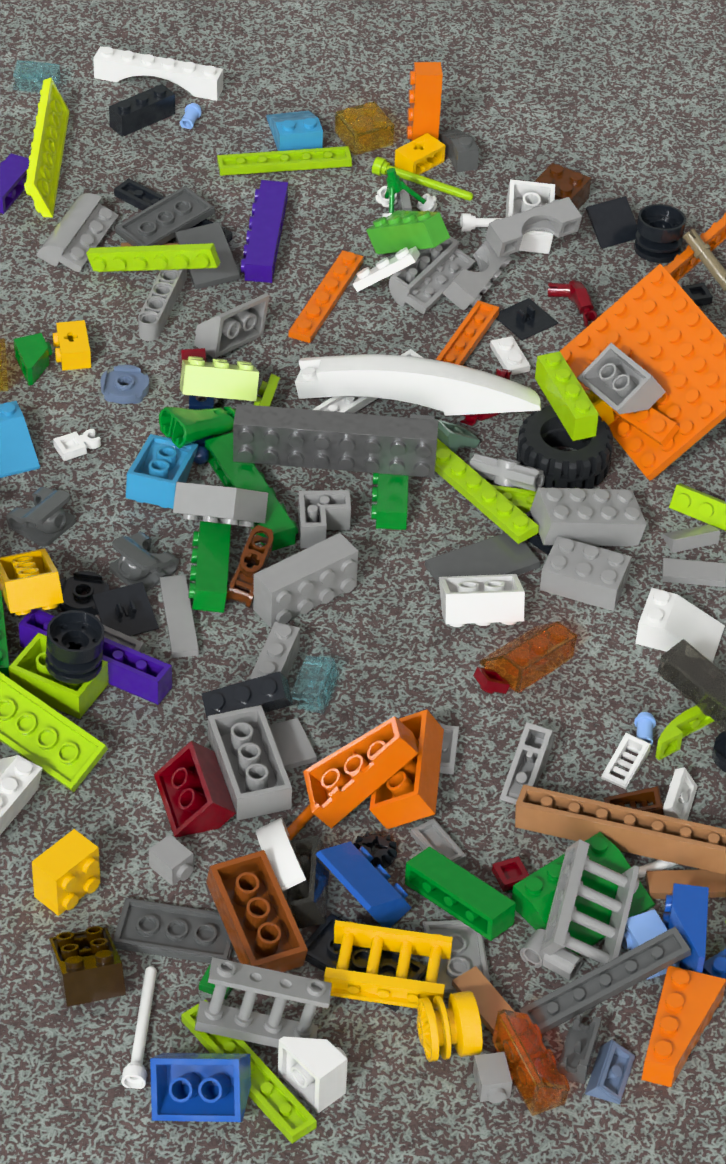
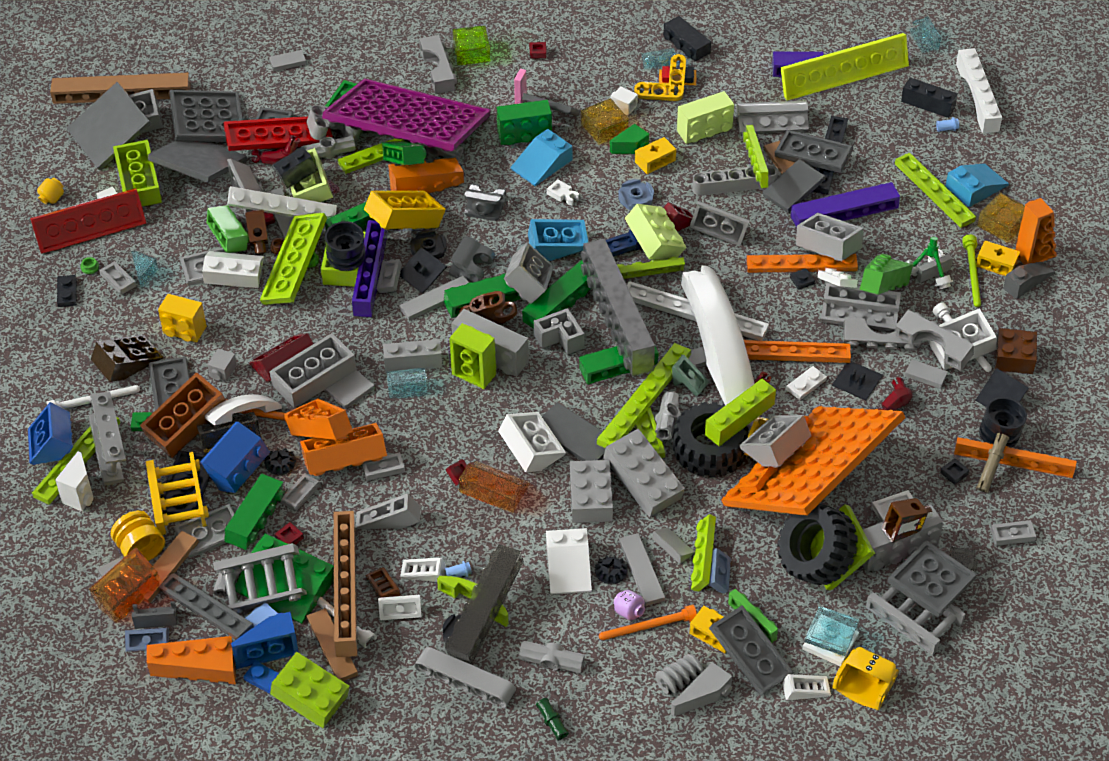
camera: 70 degrees right, 5 degrees up
(51, 279) = (705, 117): none -> yellowish green brick
(194, 424) = (598, 228): green piece -> none
(268, 691) = (363, 349): black brick -> none
(318, 252) = (829, 236): none -> light grey brick
(330, 595) = (473, 355): none -> lime brick
(351, 304) = (802, 279): none -> black plate
(547, 266) = (926, 373): none -> light grey tile
(709, 605) = (616, 575): none -> black gear

